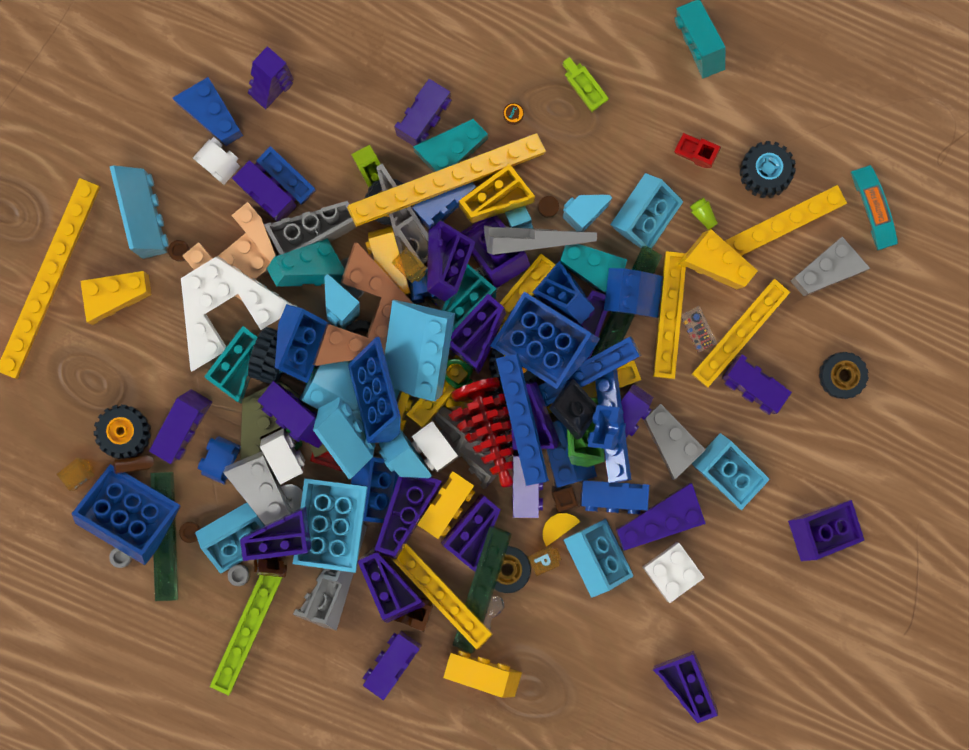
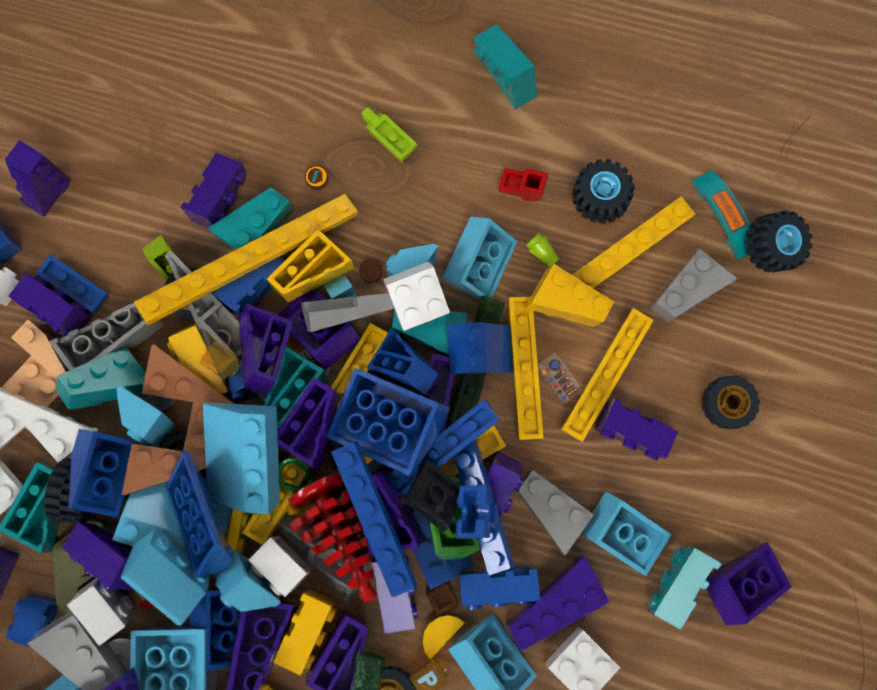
camera: 15 degrees left, 5 degrees down
(587, 238) = (416, 295): none -> white brick
(769, 521) = (681, 585): none -> wedge
(914, 241) = (778, 241): none -> black wheel

